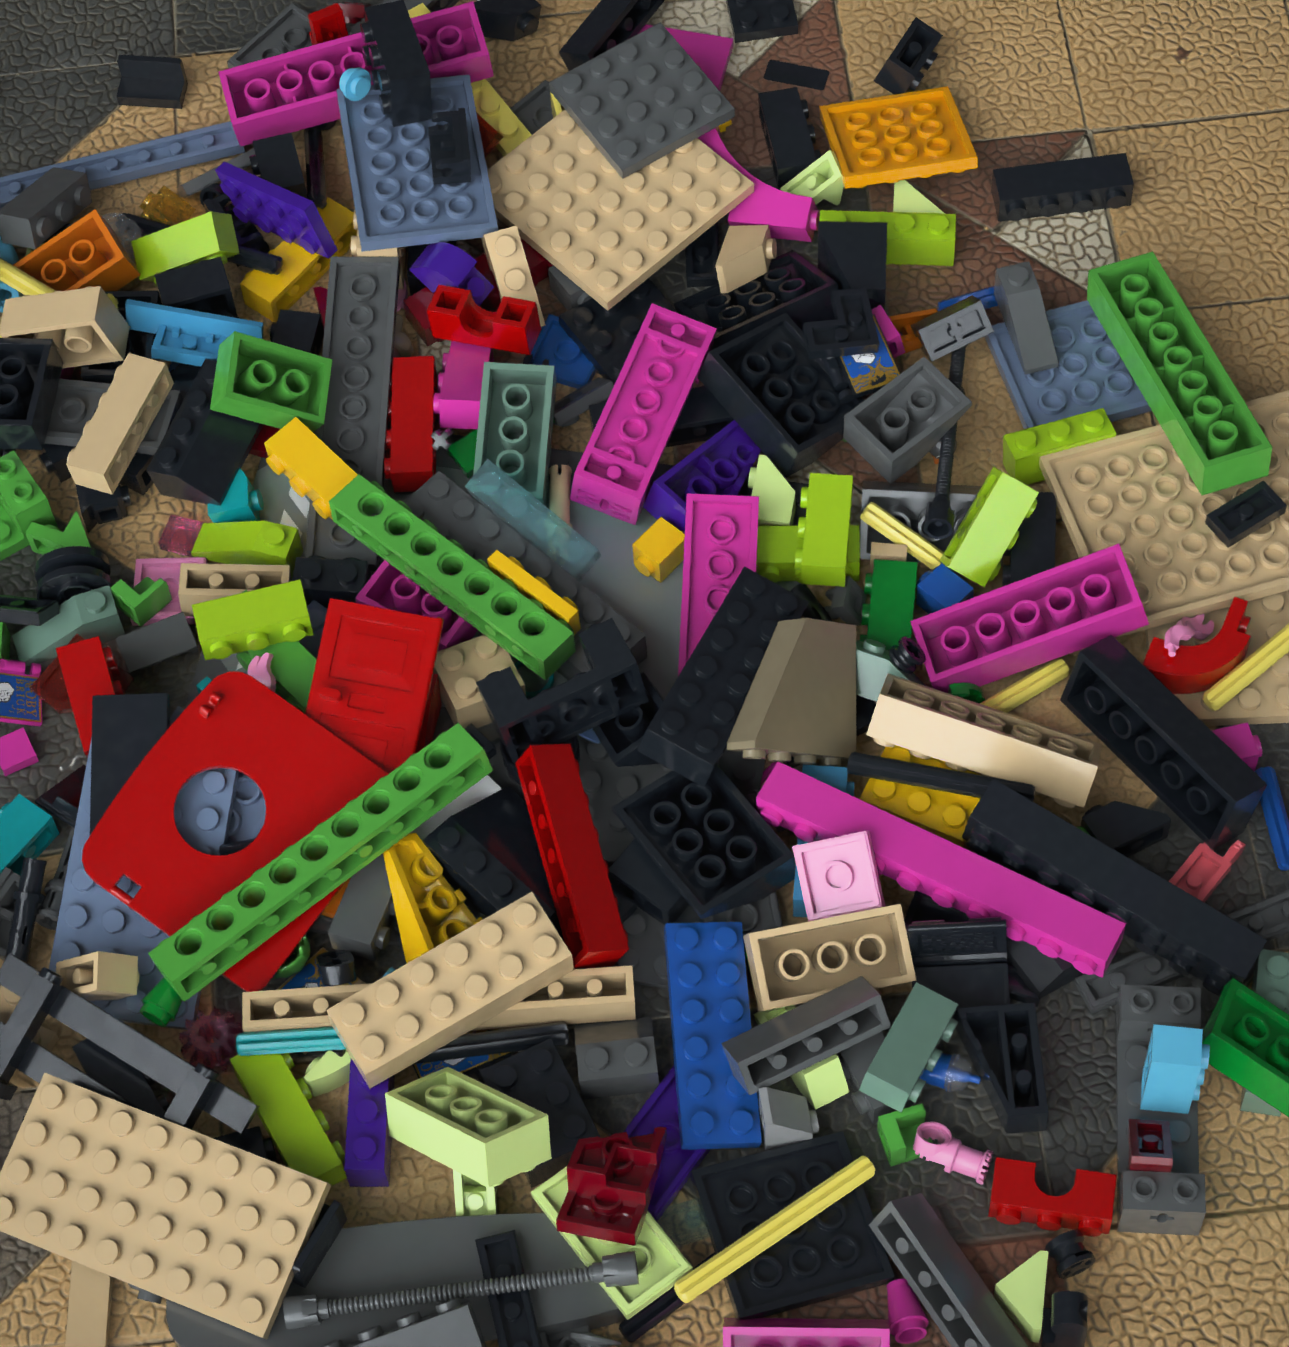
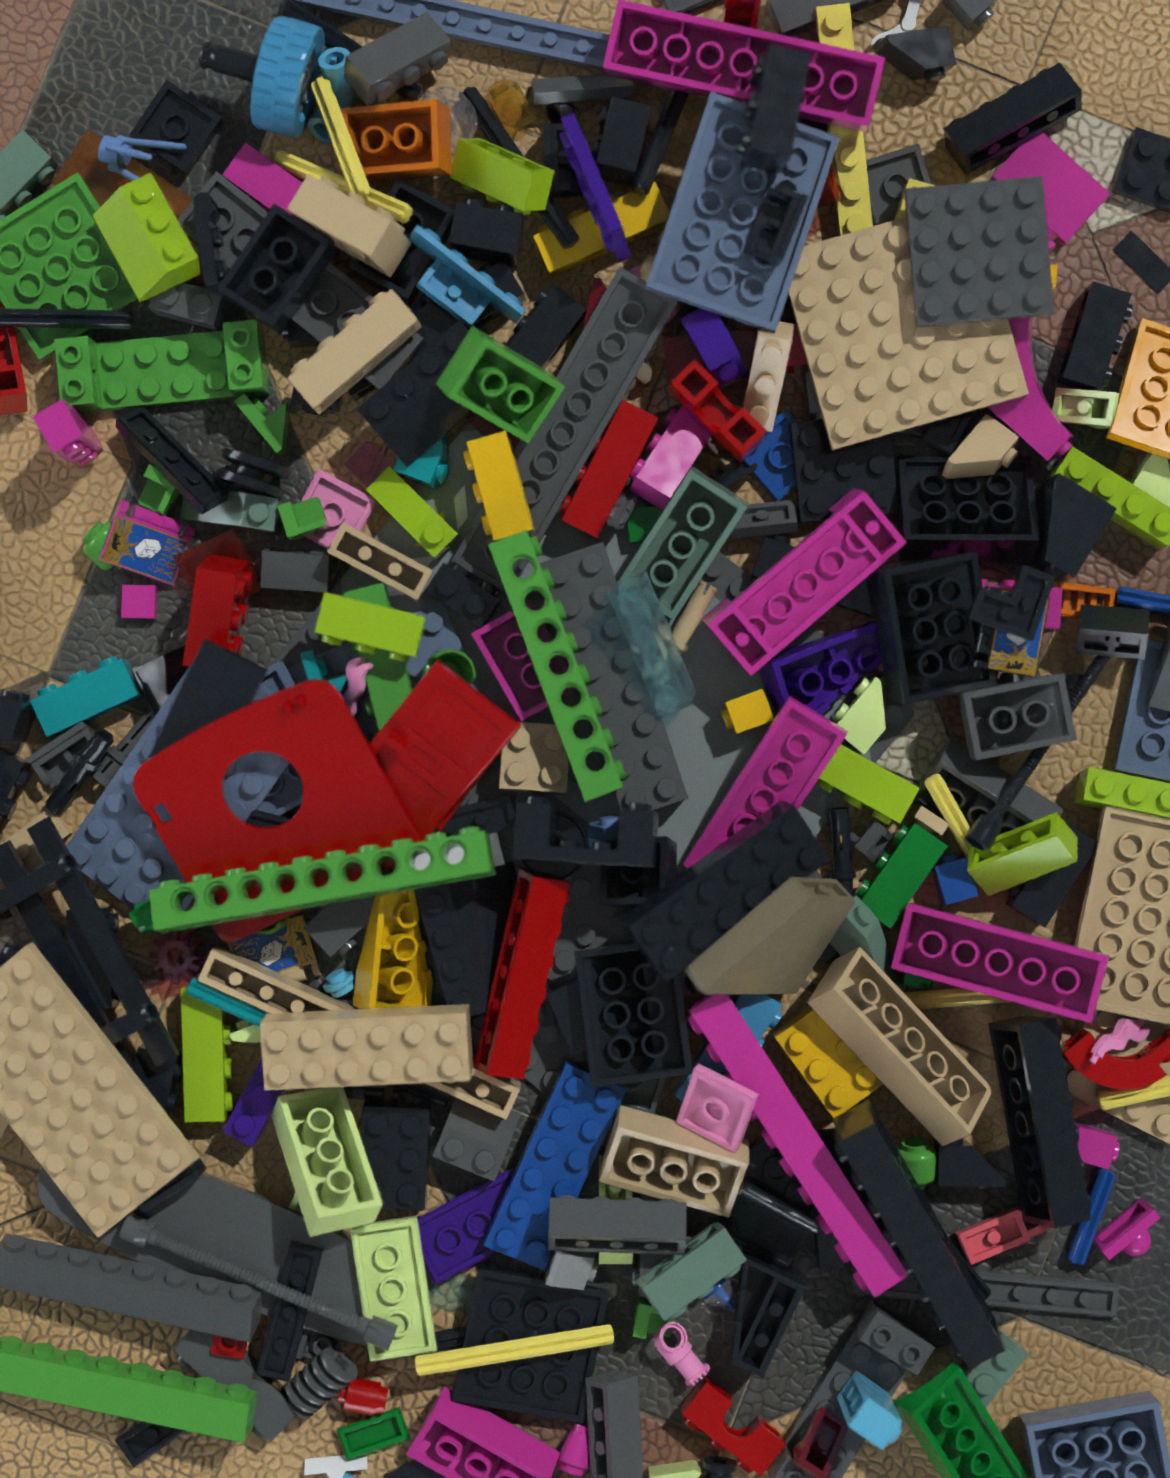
camera: 30 degrees right, 30 degrees up
(100, 975) = (108, 869): tan slope -> none
(336, 967) = (293, 955): black beam -> none
(355, 83) = (728, 103): medium azure plate -> none
(535, 588) = (616, 721): yellow plate -> none
(611, 1185) = (409, 1263): dark red slope -> none
(825, 529) = (887, 786): lime brick -> none
(907, 655) = (885, 937): black bush -> none
(928, 776) = (845, 1066): black axle -> none

